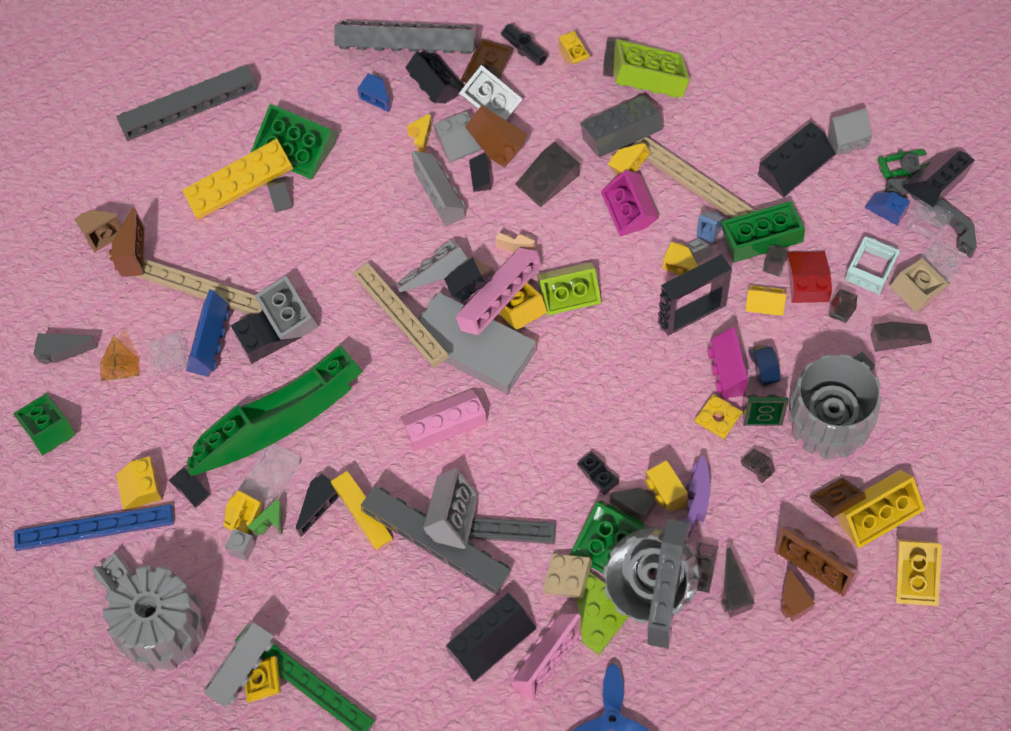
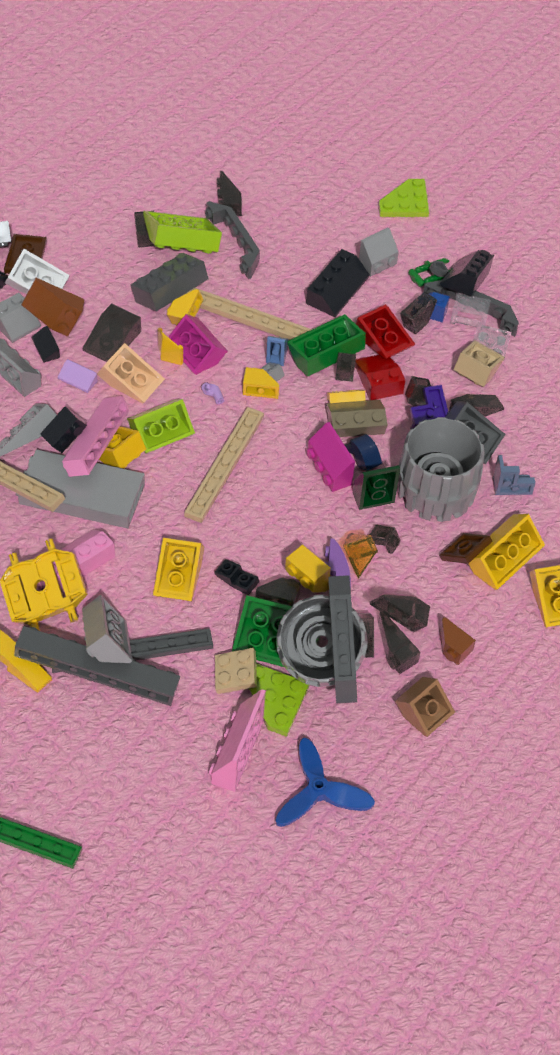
camera: 25 degrees left, 10 degrees down
(384, 450) = (20, 583): none -> yellow piece
(490, 637) = (177, 742): black slope -> none
(502, 215) = (78, 376): none -> lavender slope
(510, 244) = (94, 398): light nougat slope -> none
(524, 44) = (56, 231): black piece -> none
(542, 453) = (178, 569): none -> yellow slope
(554, 225) = (130, 374): none -> light nougat slope
(572, 48) = (103, 227): yellow slope -> none
(599, 204) = (168, 349): none -> yellow slope
(615, 351) = (224, 465): none -> tan plate
(632, 259) = (214, 391): none -> lavender arm
(698, 52) = (220, 213): none -> dark grey slope
(713, 34) = (229, 194): none -> clear smoke slope
(714, 407) = (330, 498): yellow piece -> none
(715, 271) = (298, 374): black window -> none
(725, 476) = (360, 551): none -> clear yellow slope
(743, 660) = (425, 705): none -> medium nougat slope
(757, 556) = (404, 609): none -> clear smoke slope
(769, 322) = (357, 418): none -> dark tan slope
(815, 560) = (465, 603): dark orange slope -> none
(827, 229) = (384, 332): none -> red slope
(851, 335) = (434, 407): none -> dark purple panel
(867, 280) = (428, 367): light aqua window -> none
(871, 213) = (418, 313): none -> clear smoke slope
(886, 364) = (488, 433): none -> dark grey slope
(902, 71) = (406, 200): none -> lime plate
(912, 431) = (509, 482): none -> sand blue panel

